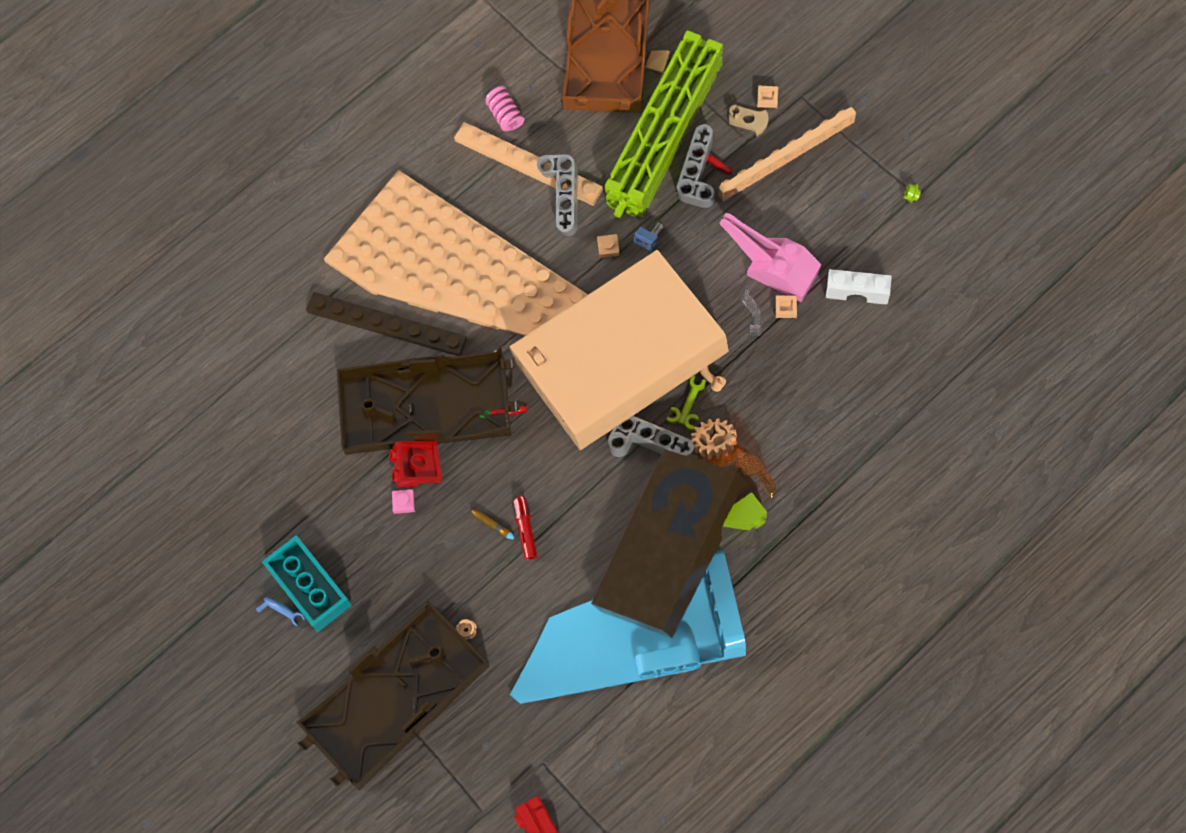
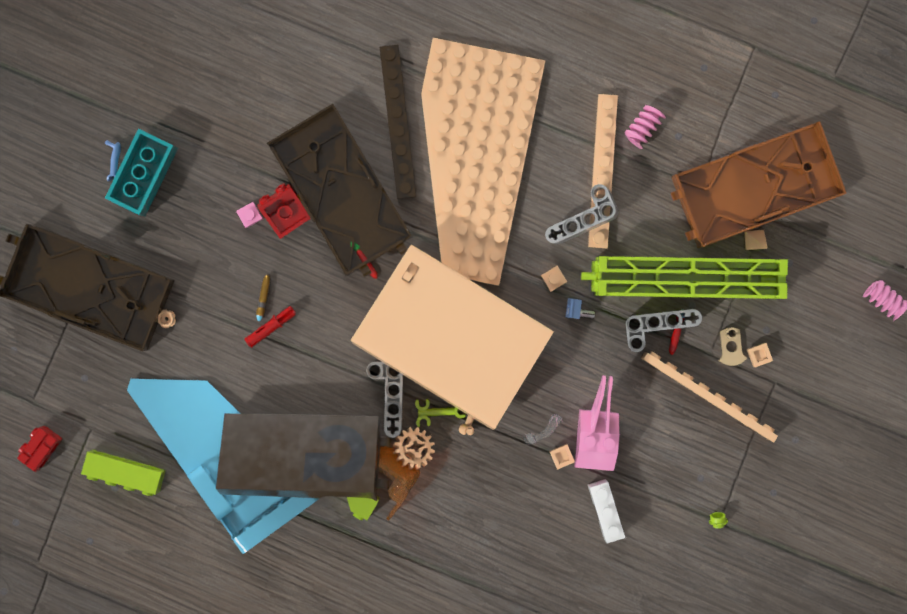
camera: 60 degrees right, 20 degrees up
(604, 744) = (123, 472): none -> lime brick

